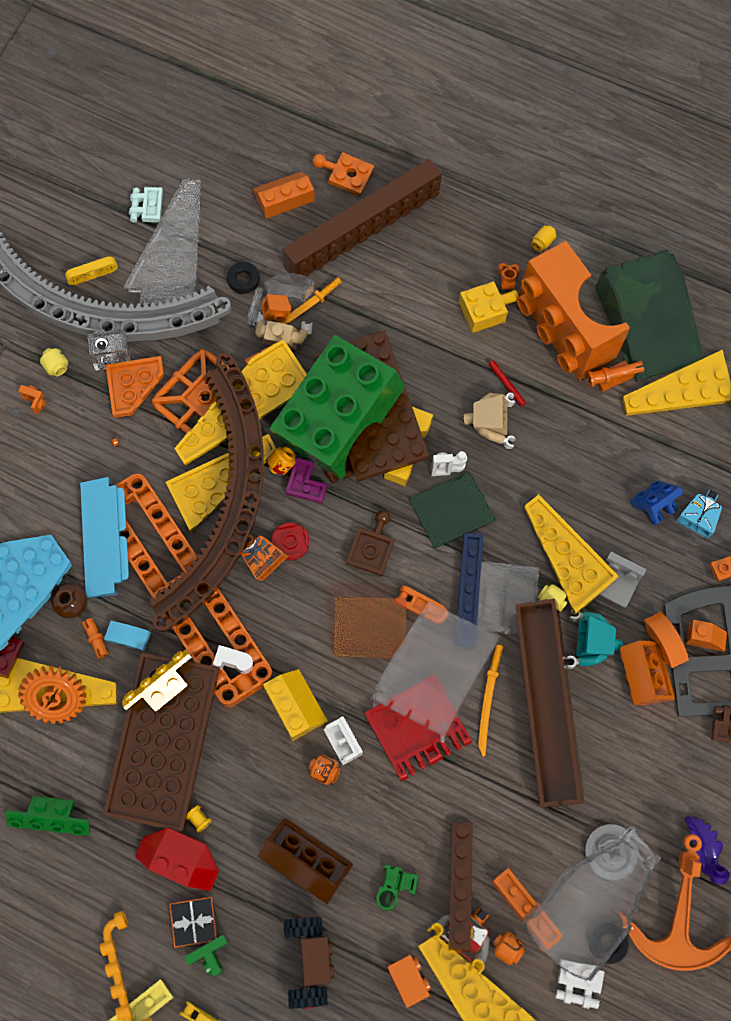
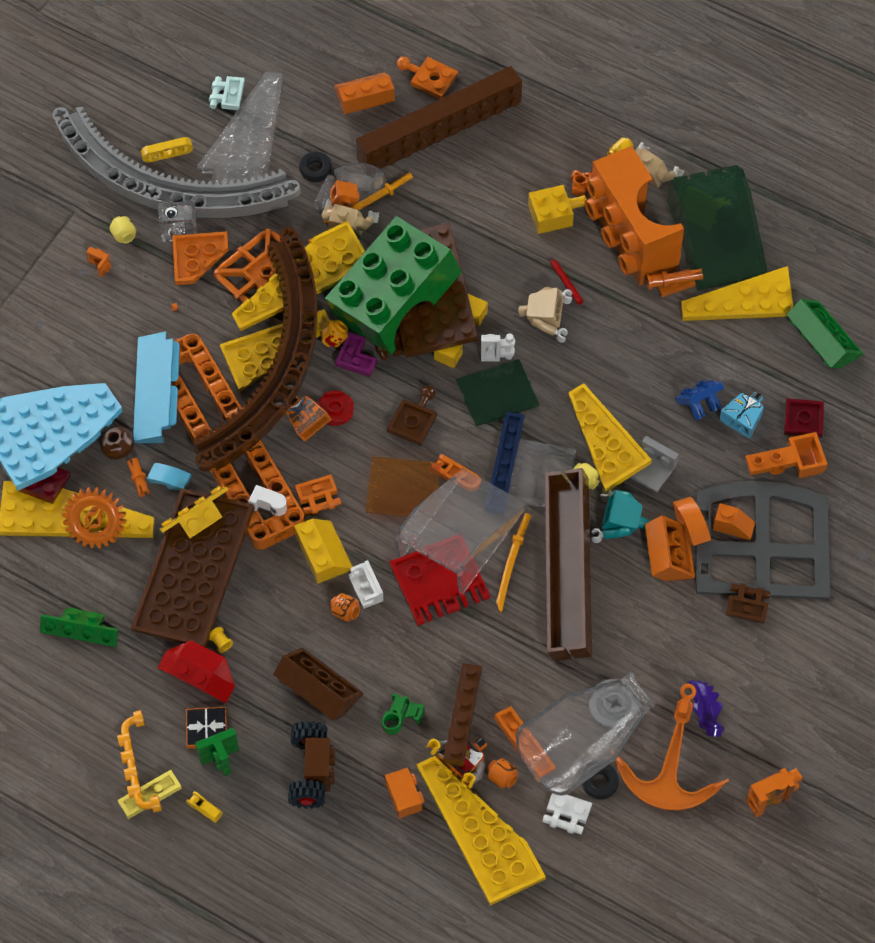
camera: 10 degrees right, 10 degrees down
(280, 636) = (317, 489): none -> orange plate
(583, 252) = (656, 166): none -> tan torso

